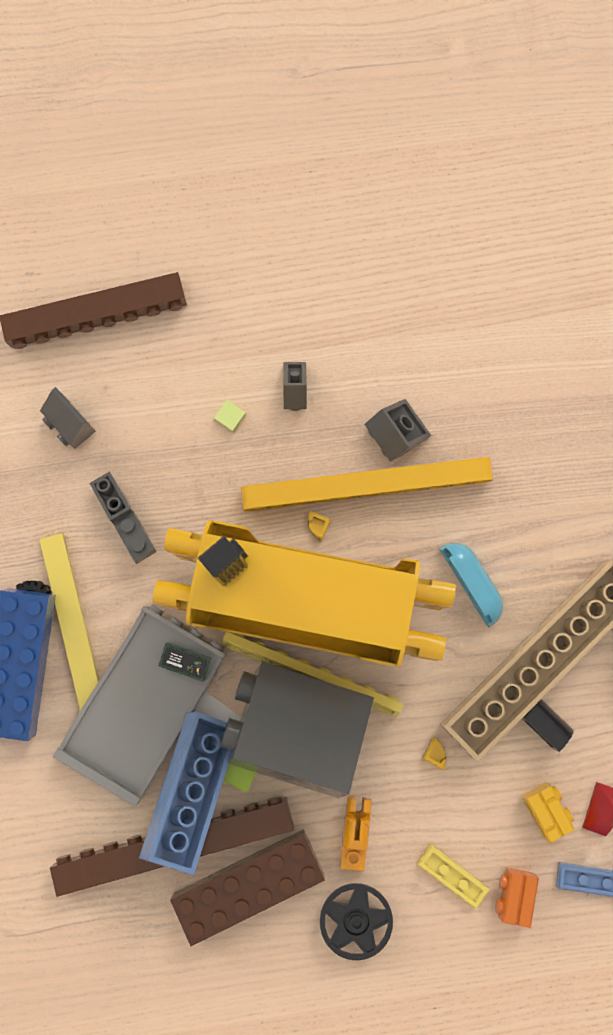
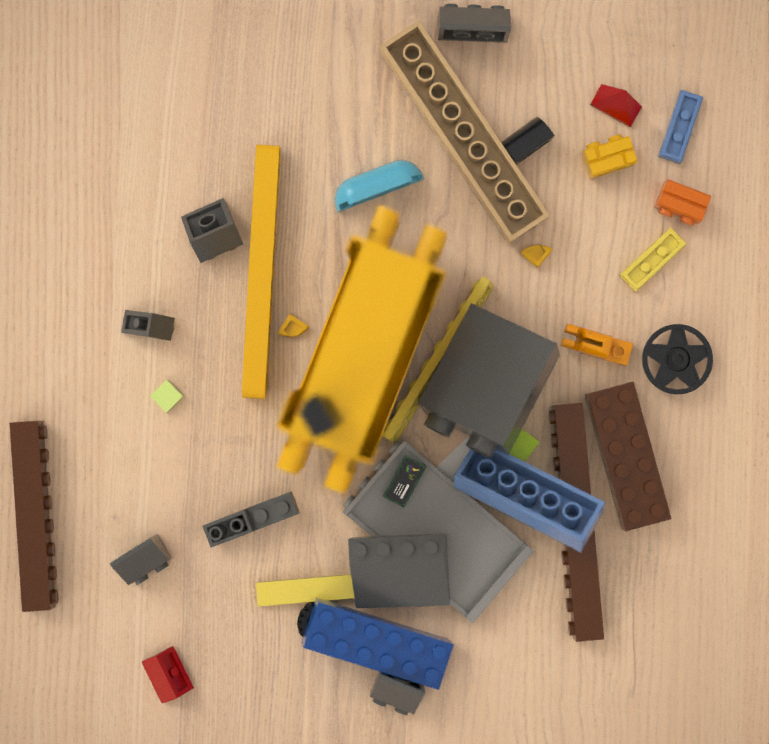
camera: 75 degrees left, 5 degrees up
(94, 673) = (399, 570): none -> dark grey slope

